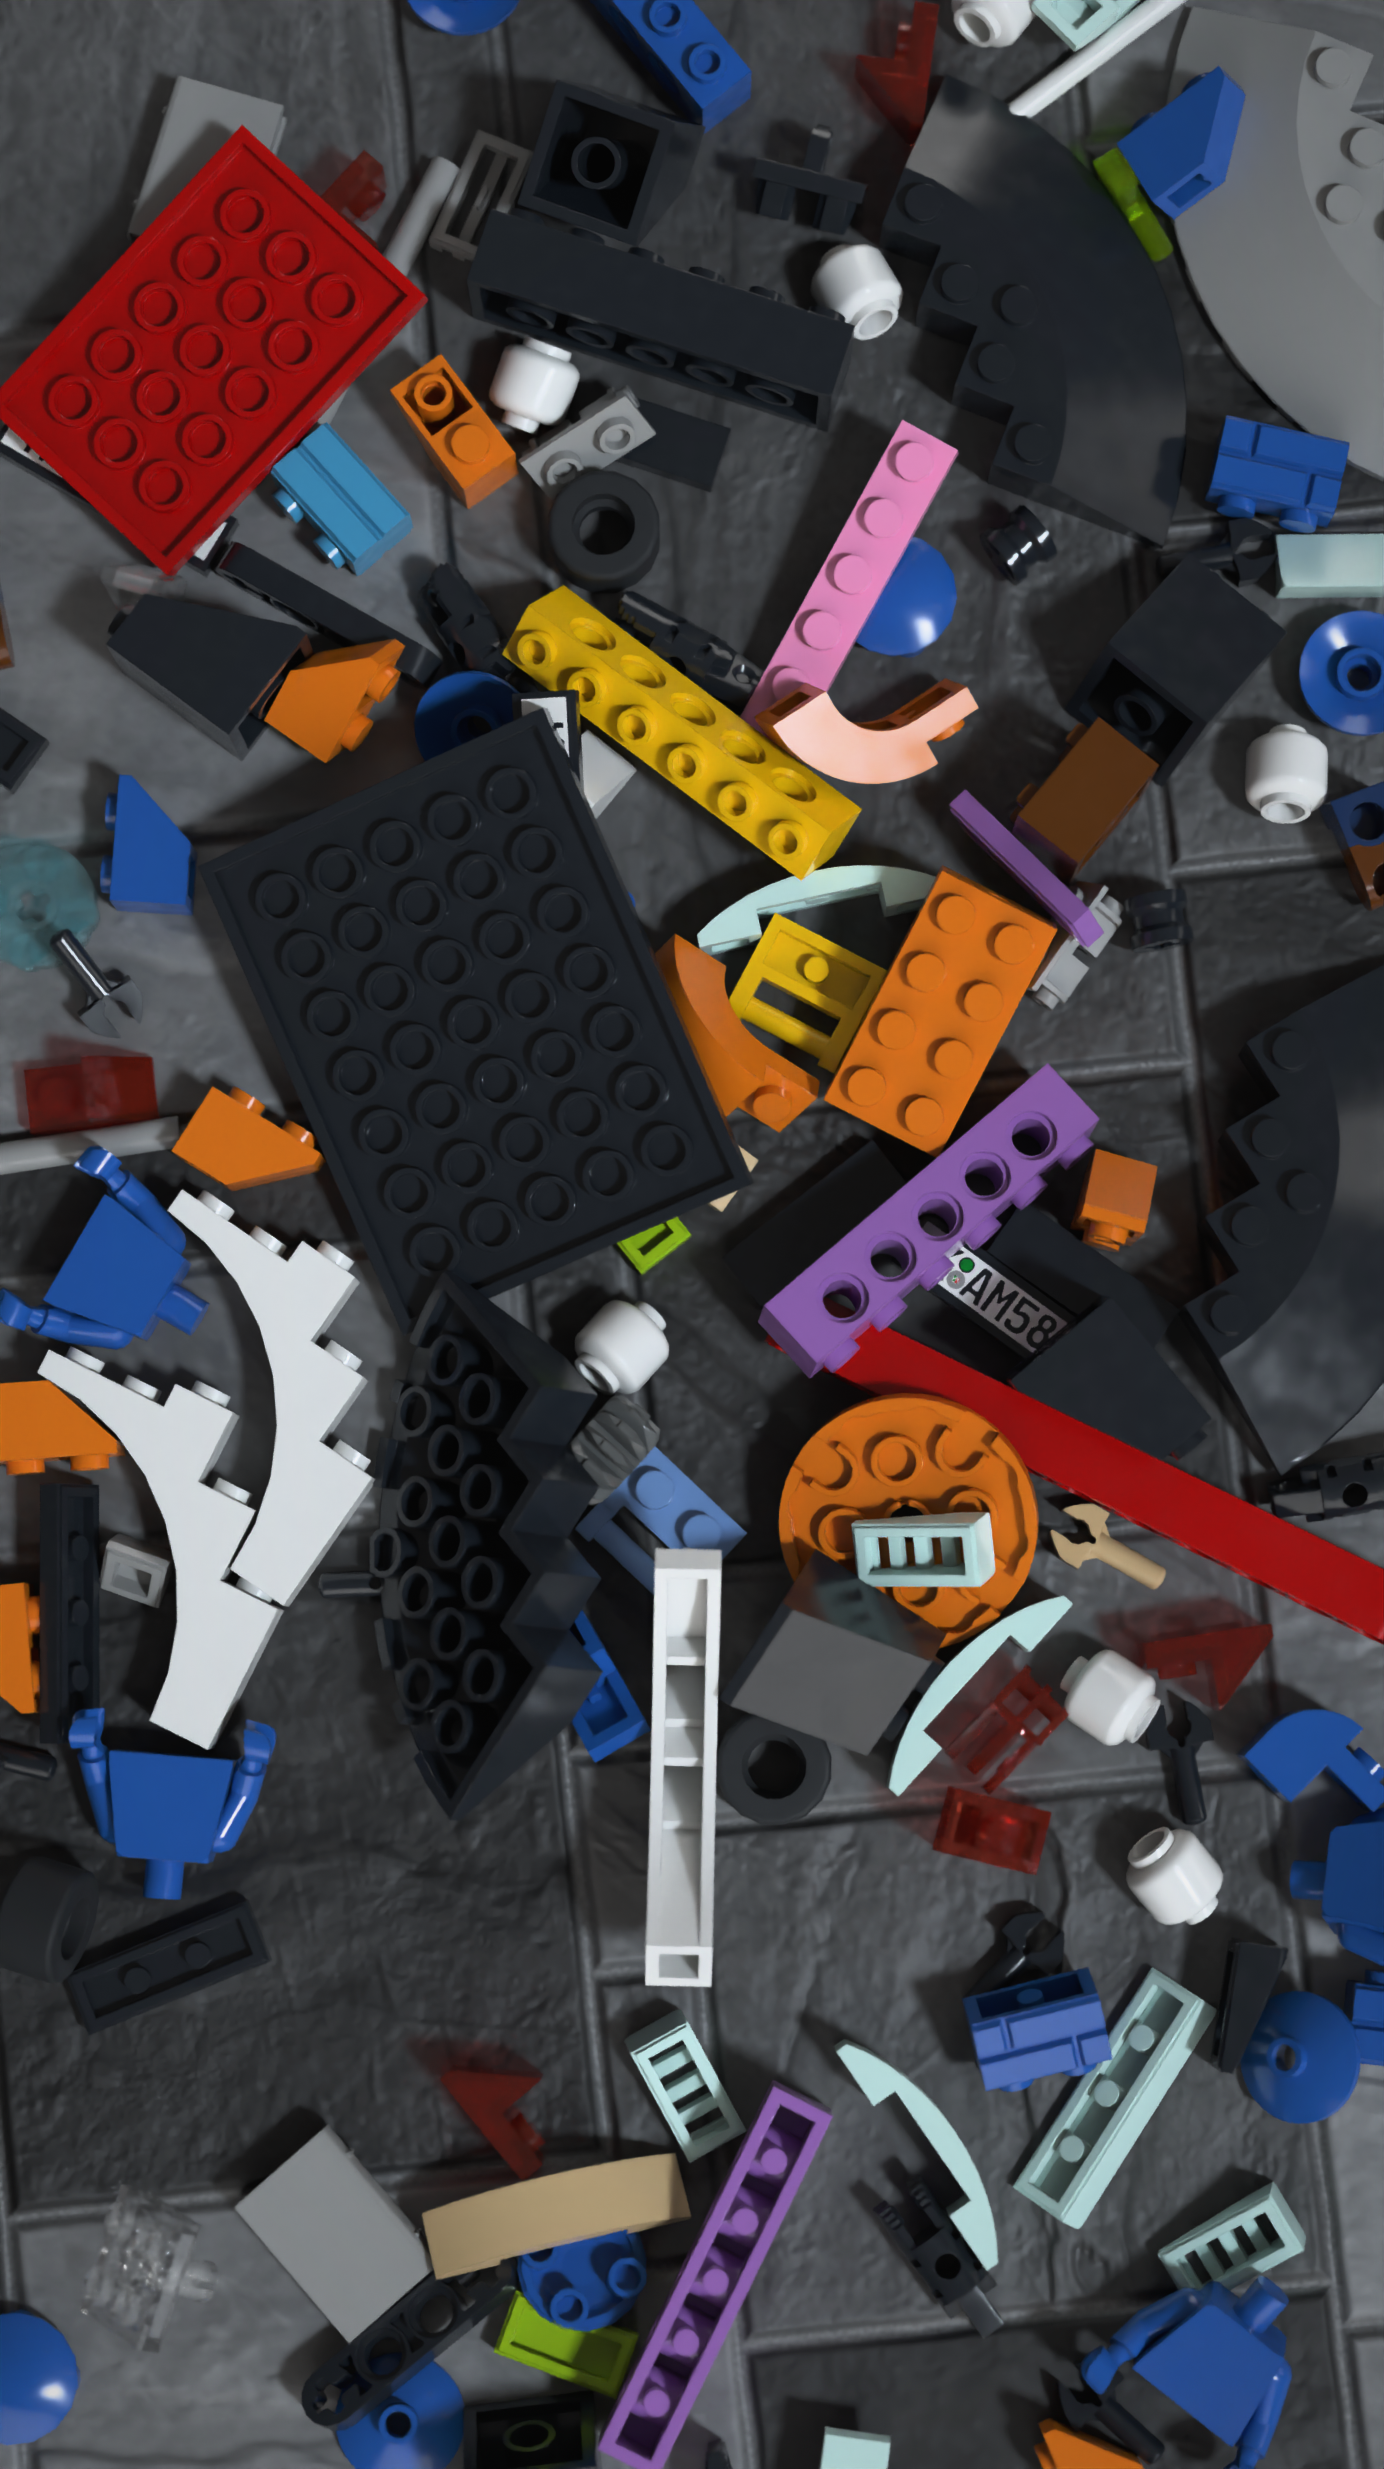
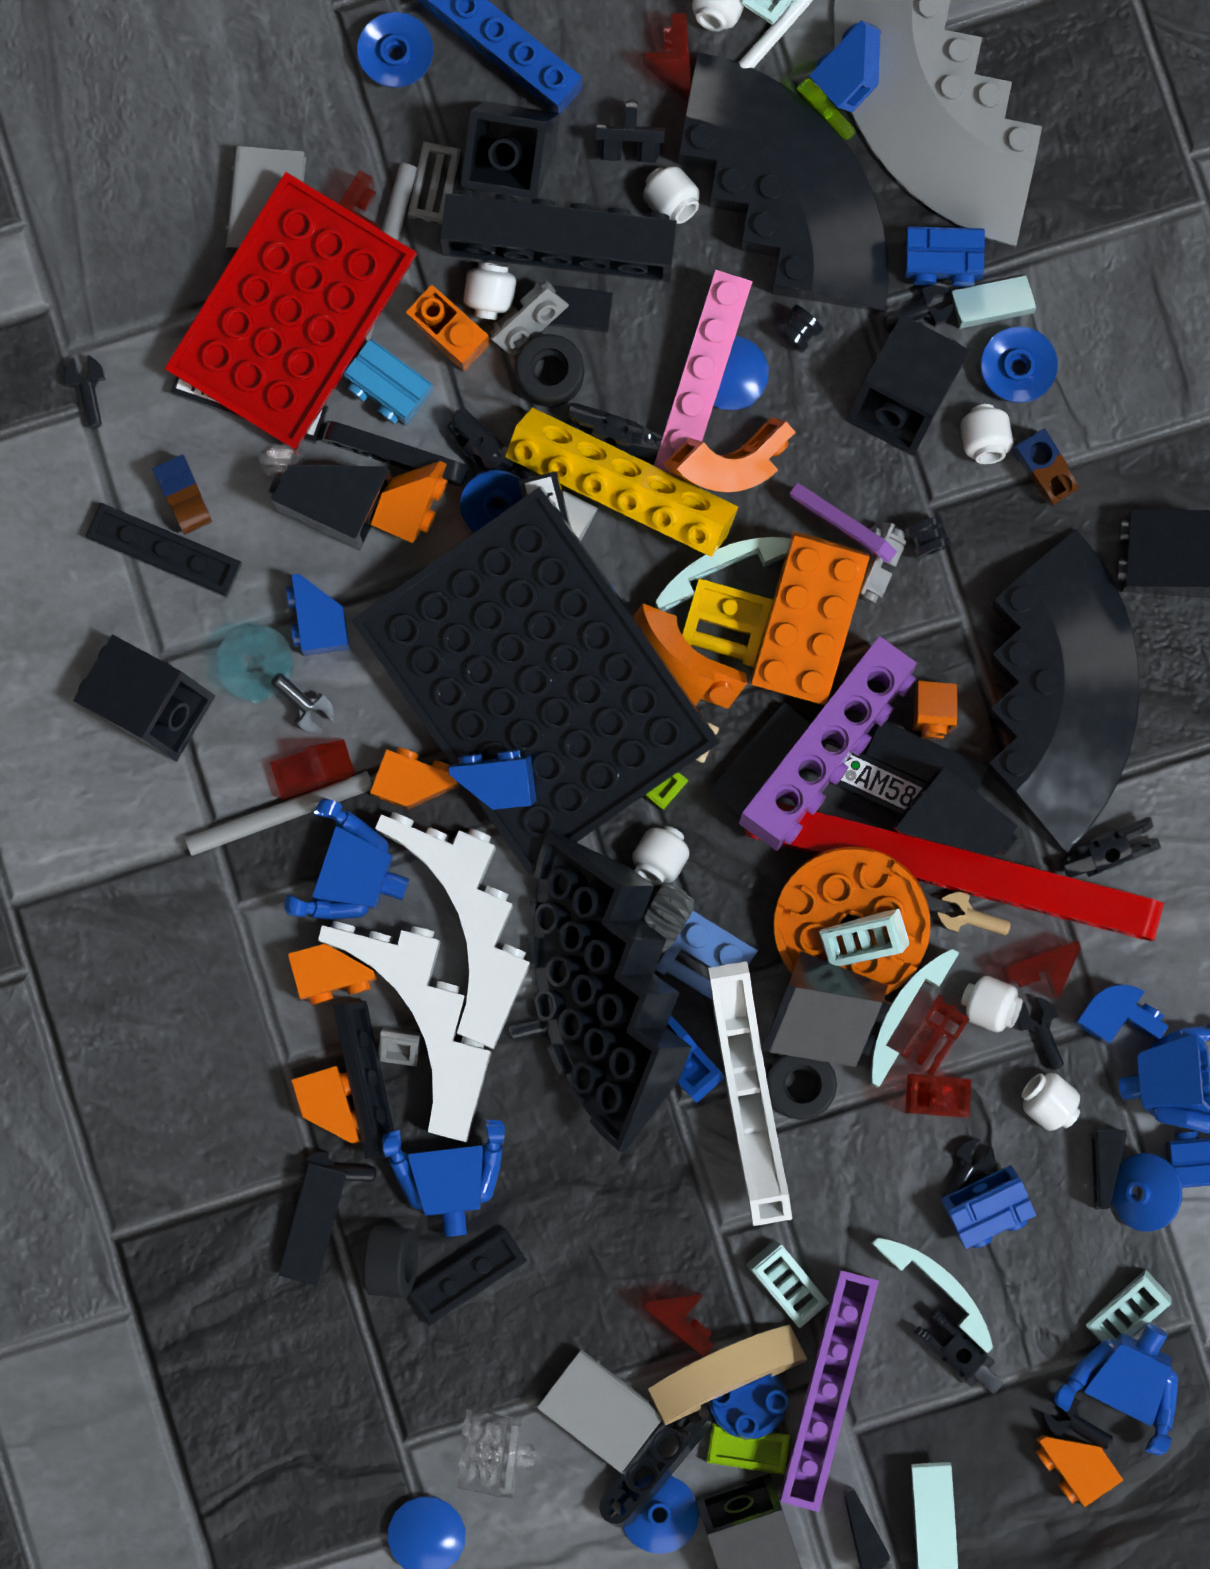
camera: 10 degrees left, 0 degrees up
(378, 1175) = (499, 781): none -> blue slope
(1082, 799) = (868, 474): reddish brown container -> none
(1115, 2099) = (1043, 1240): light aqua slope -> none

